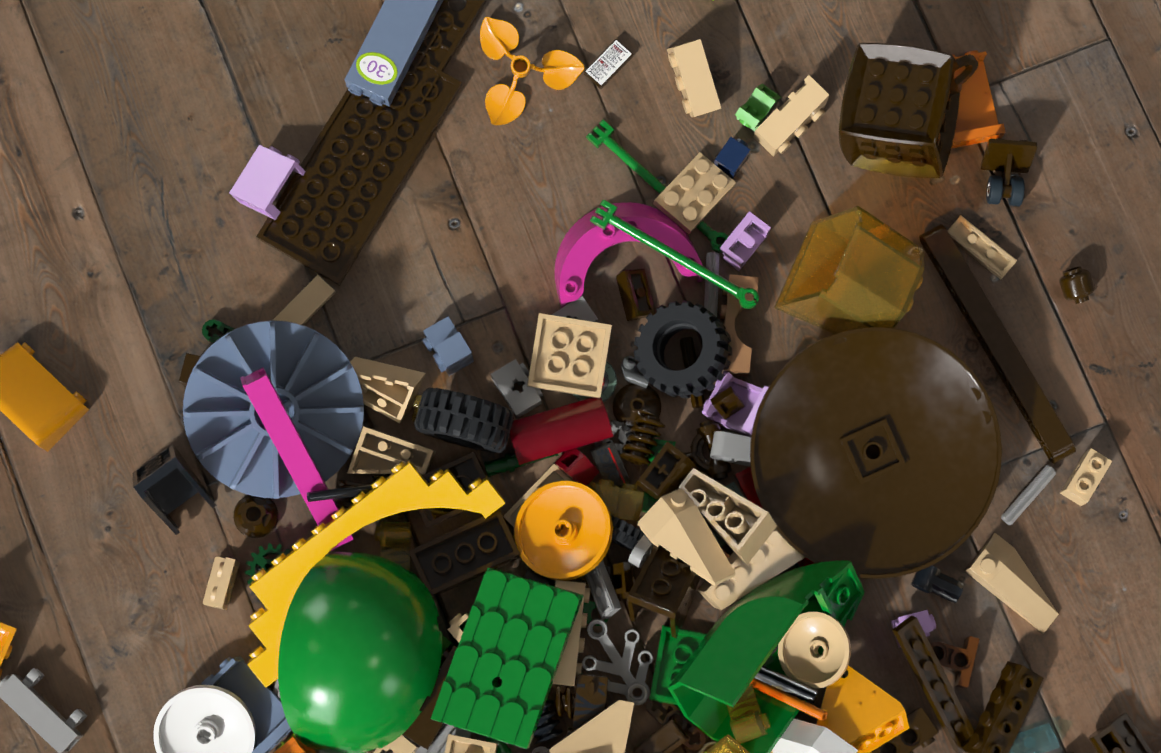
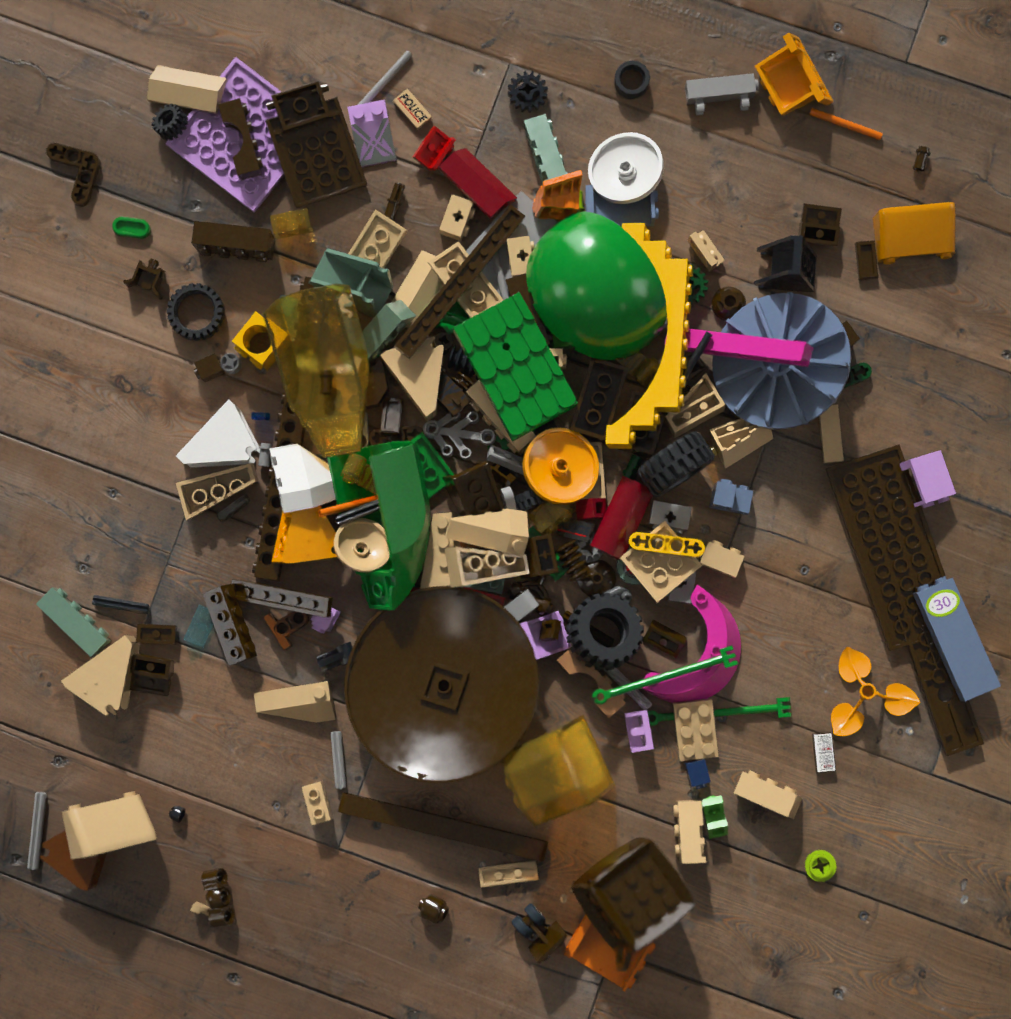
camera: 140 degrees right, 5 degrees up
(96, 421) = (866, 260): none -> dark brown tile
(100, 493) = (820, 224): none -> dark brown brick
(514, 306) = (722, 559): none -> tan brick
(552, 360) = (666, 547): none -> yellow beam

